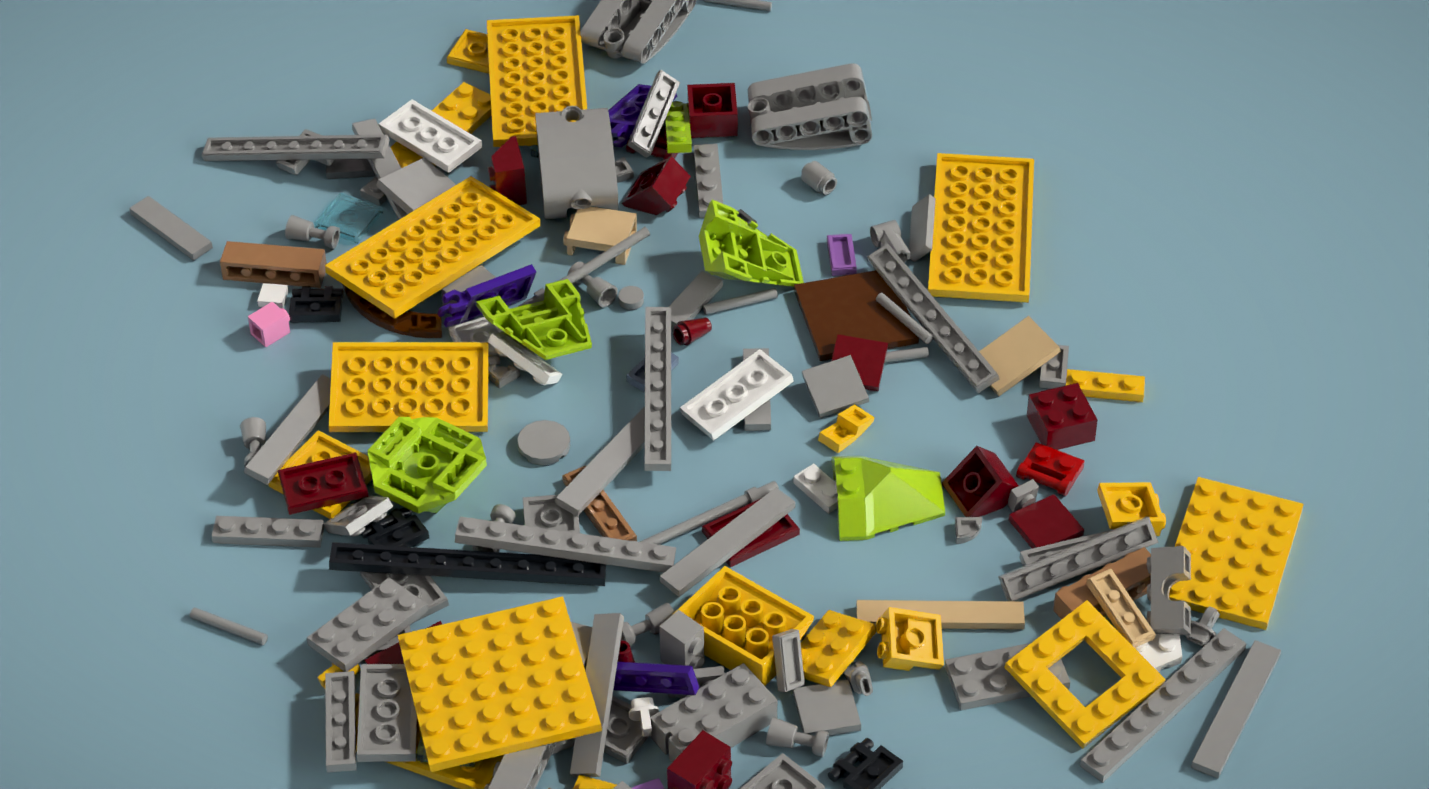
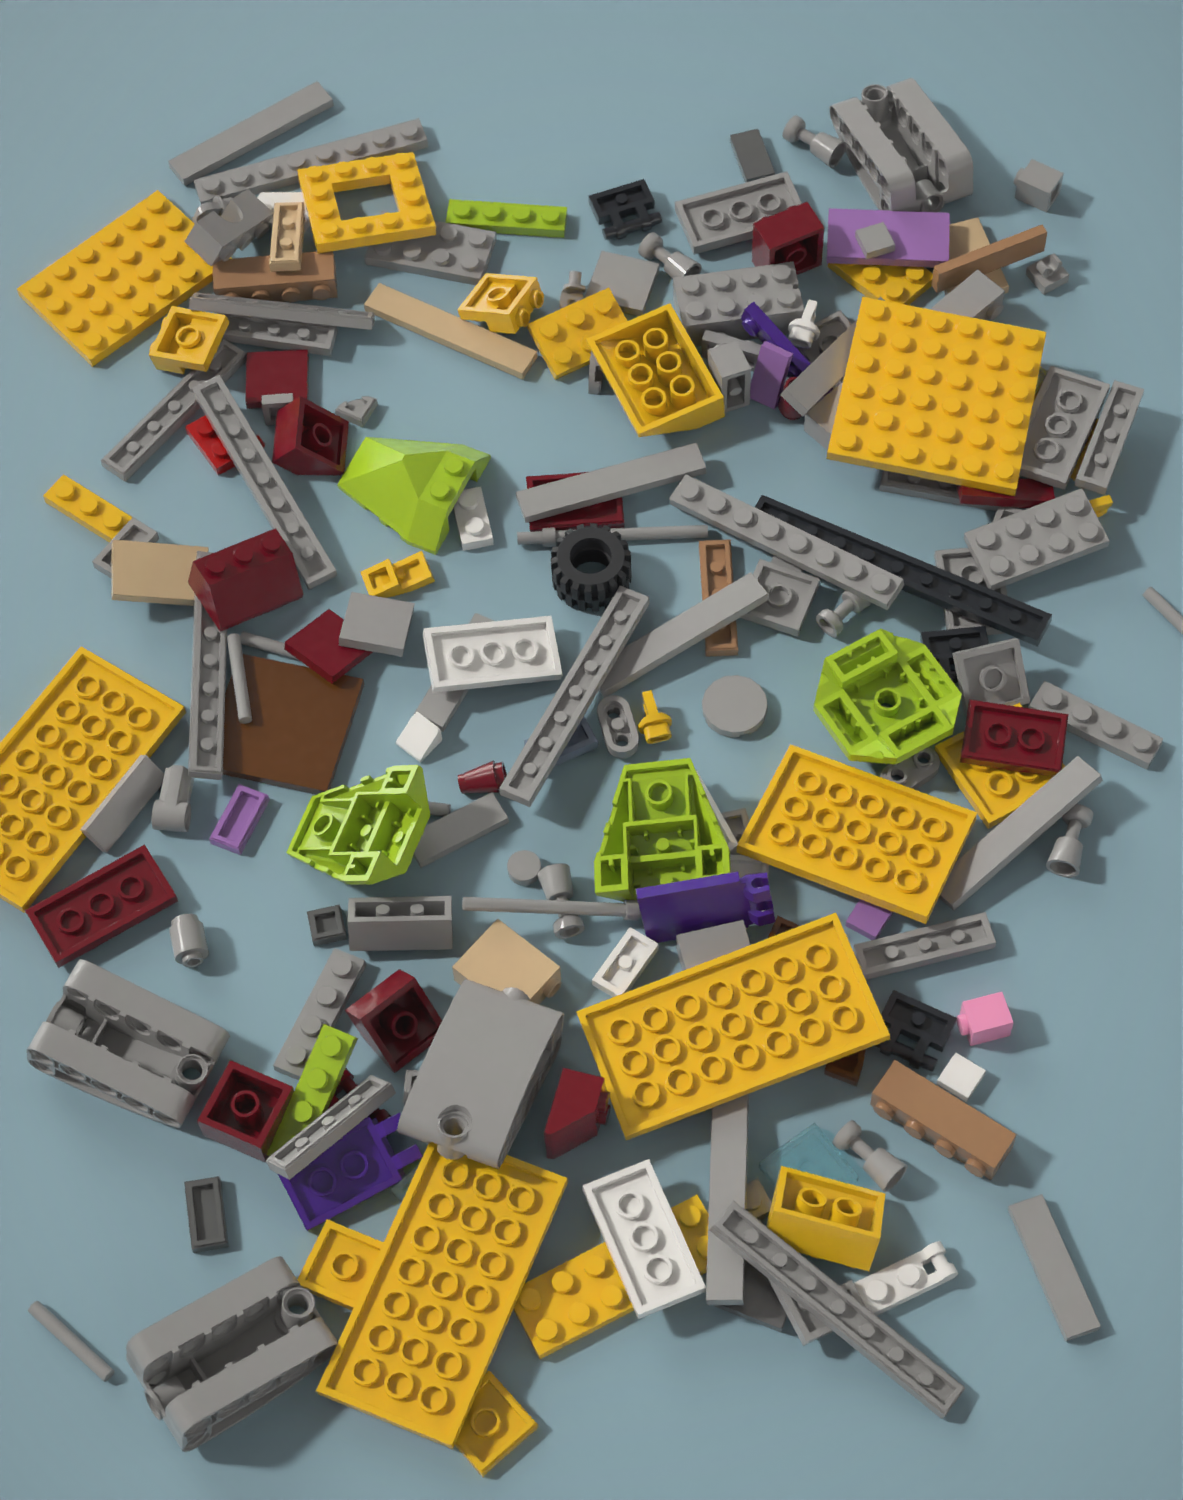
camera: 150 degrees left, 15 degrees up
(262, 190) = (905, 1279): none -> white plate
(320, 355) = (925, 946): none -> light grey plate
(323, 186) = (827, 1218): none -> yellow slope
(415, 184) = (703, 1152): light grey tile -> none
(530, 256) = (625, 963): none -> white plate
(595, 405) = (654, 725): none -> yellow piece
(606, 77) = (339, 1264): none -> yellow plate
(619, 394) = (619, 728): none -> light grey plate
(647, 655) = (770, 374): none -> medium lavender tile
(652, 622) = (733, 431): light grey piece -> none
(678, 229) = (400, 923): none -> light grey brick
(702, 71) = (206, 1214): none -> dark grey tile
(703, 460) = (584, 546): none -> black tyre
(754, 339) = (419, 737): none -> white slope
(788, 660) = (635, 310): light grey tile -> none
(889, 176) = (101, 906): none -> dark red plate
(948, 367) = (246, 579): none -> dark red slope
(963, 725) = (509, 217): none -> lime plate
(991, 436) = (264, 481): none -> light grey plate
(1062, 417) = (170, 477): dark red brick -> none
(1105, 467) = (169, 414): none -> light grey tile

